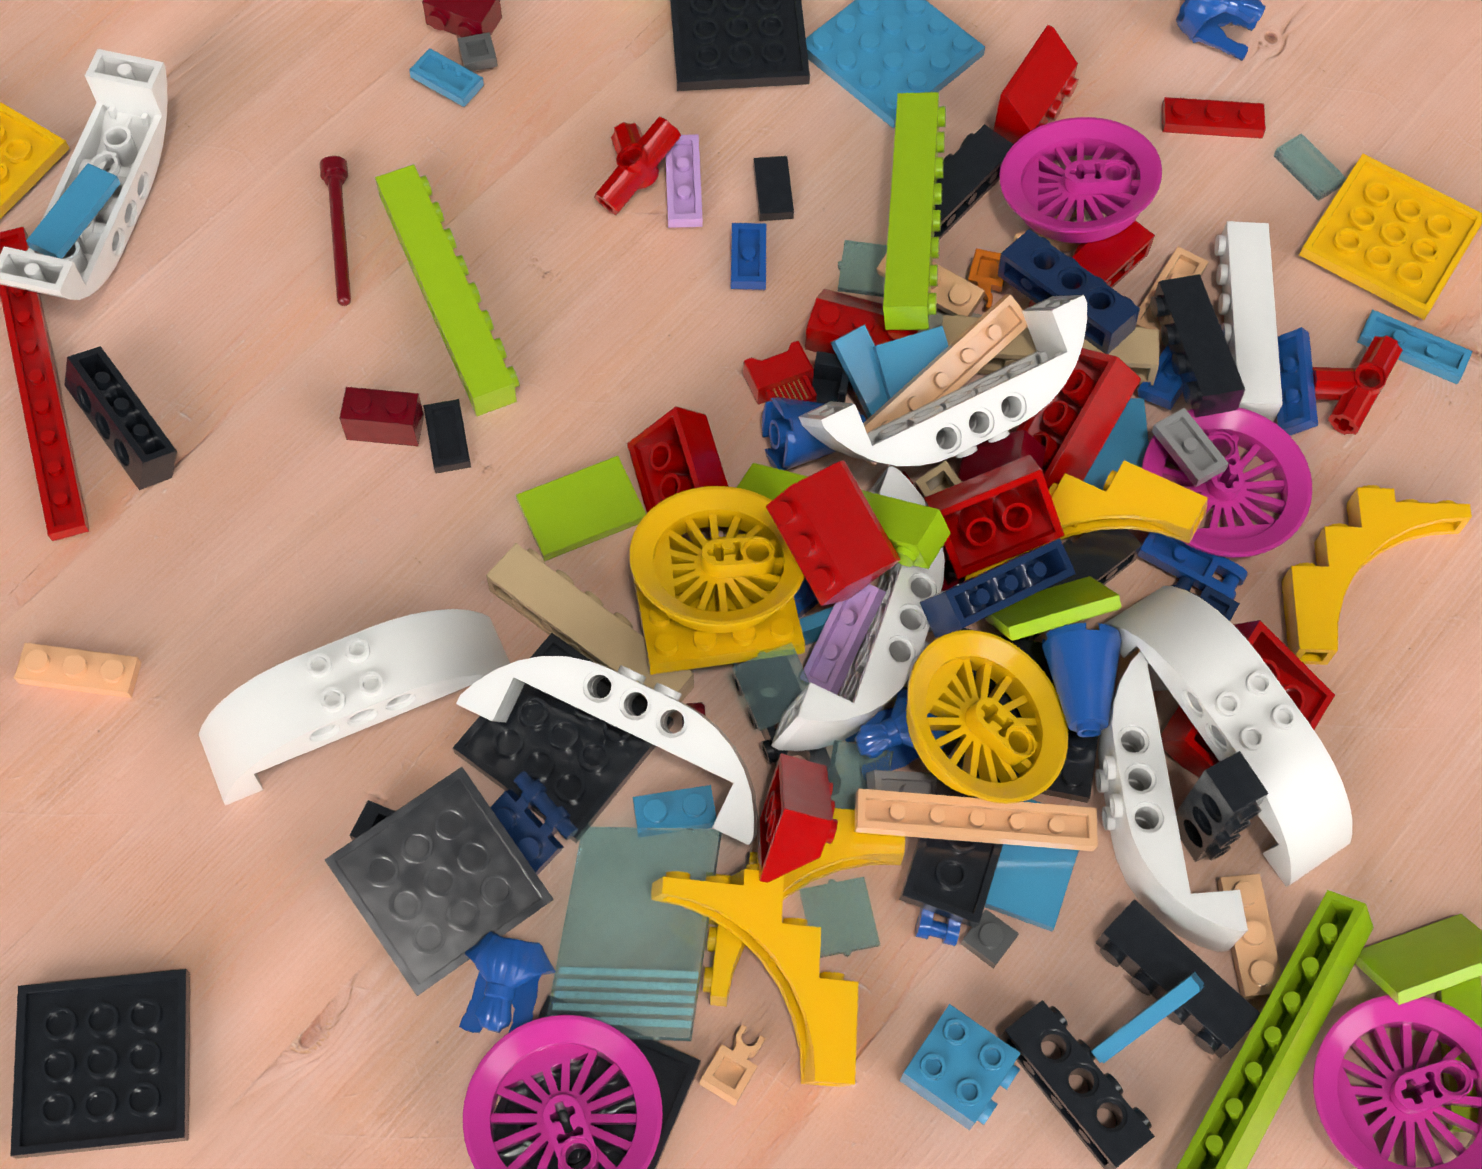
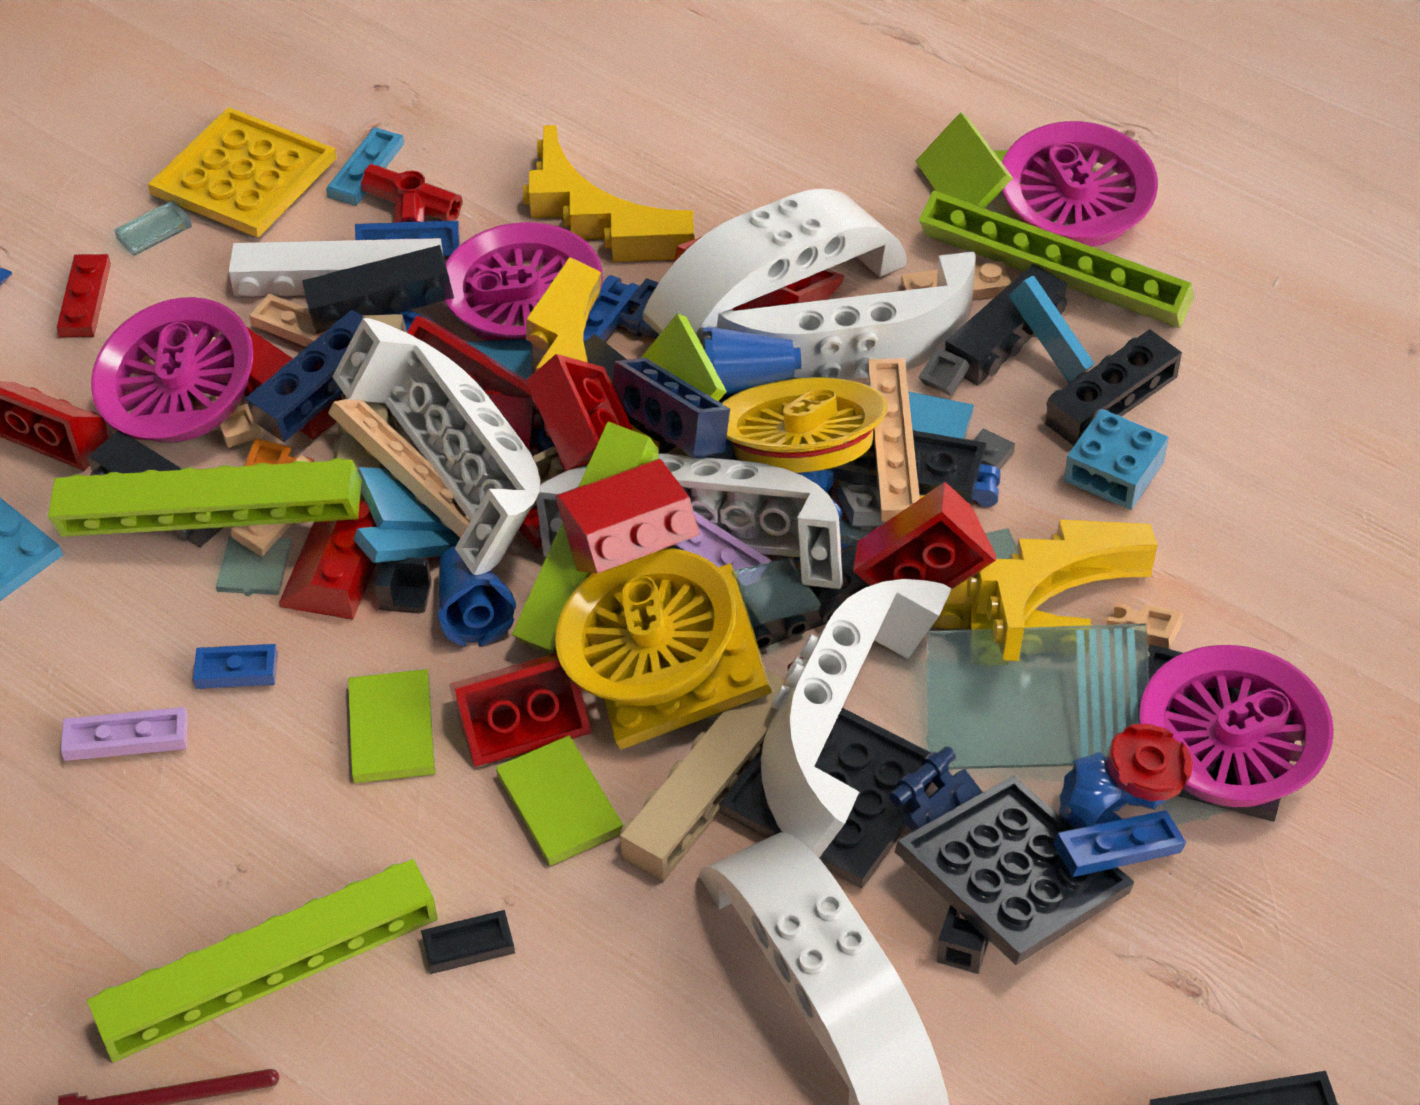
camera: 90 degrees left, 15 degrees down
(382, 416) = (450, 1000): dark red brick -> none
(450, 982) = (1119, 843): none -> blue plate
(511, 1009) = (1149, 762): none -> red tile
(636, 161) = (84, 779): red piece -> none
(676, 809) = (900, 691): dark azure plate -> none
(677, 375) = (391, 726): none -> lime tile
(773, 188) = (139, 653): black tile -> none
(781, 376) = (401, 625): red piece -> none
(1102, 900) = (944, 371): none -> dark grey plate
(1189, 447) = (494, 293): light grey plate -> none
(1219, 807) = (867, 249): black brick -> none

